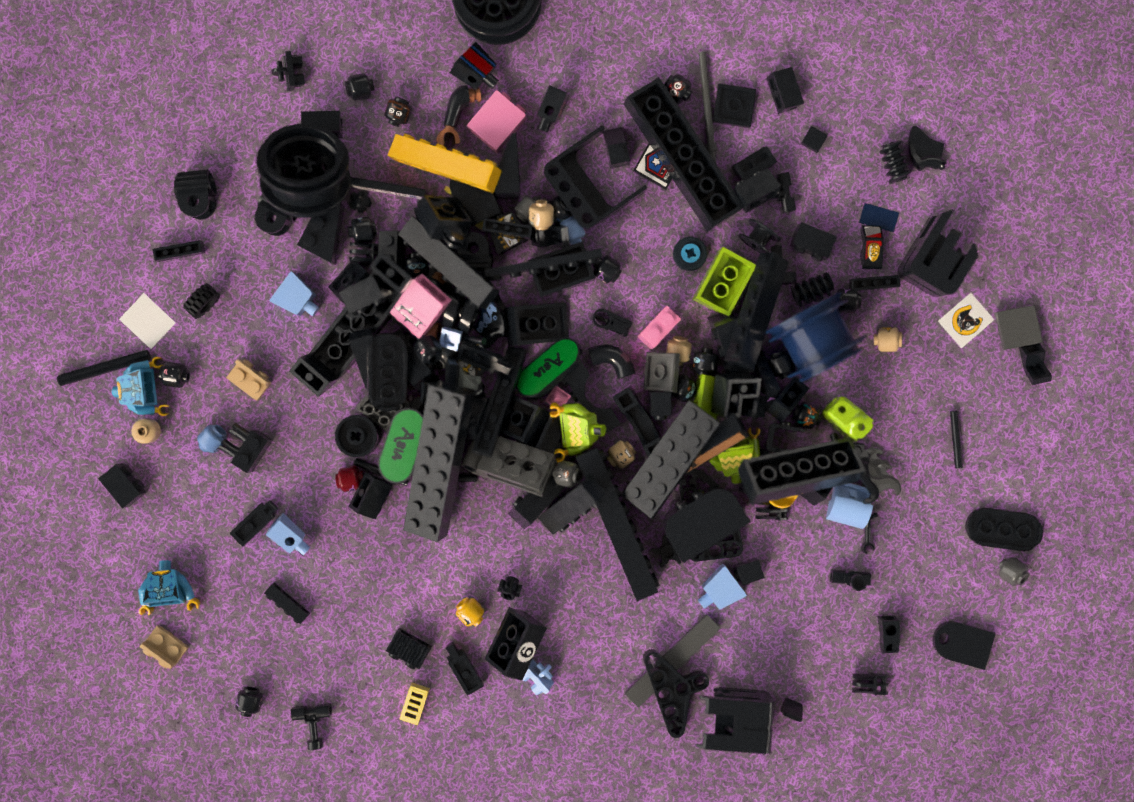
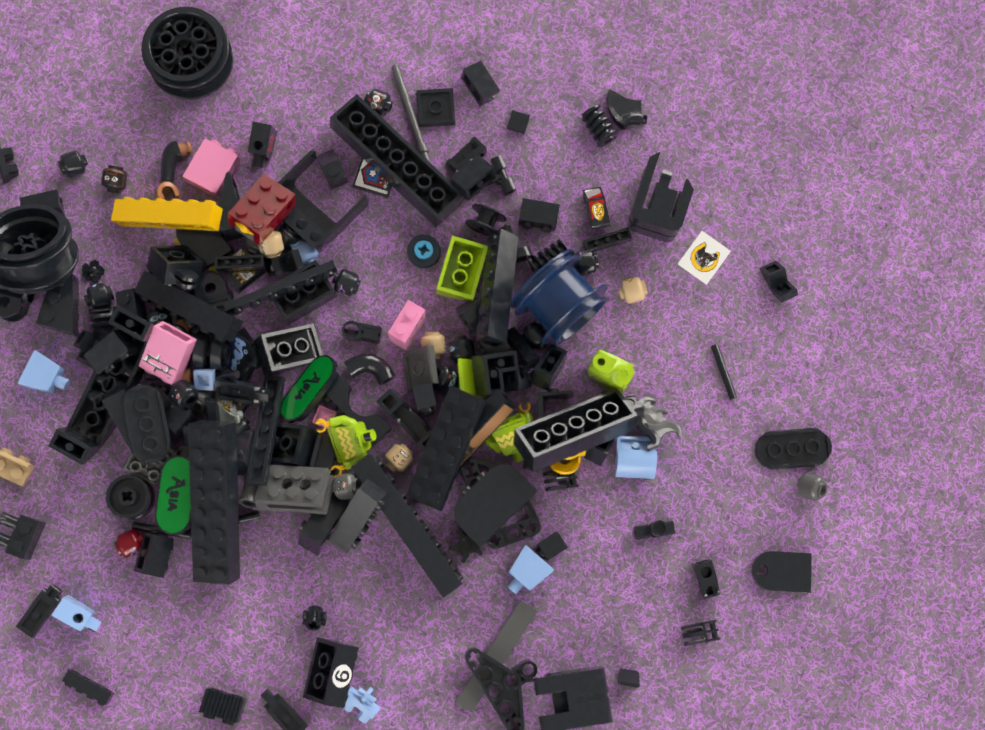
camera: 20 degrees left, 10 degrees down
(339, 270) = (83, 340): none -> black tile
(387, 188) = (113, 252): black tile -> none
(470, 611) = (278, 652): yellow head -> none
(475, 68) = (180, 123): black torso -> none
(541, 181) = (261, 209): none -> dark red piece
(807, 415) = (573, 380): black head -> none
(868, 534) = (661, 482): black piece -> none
(879, 216) = (593, 179): dark blue sticker -> none
(1018, 327) = (754, 252): dark grey tile -> none

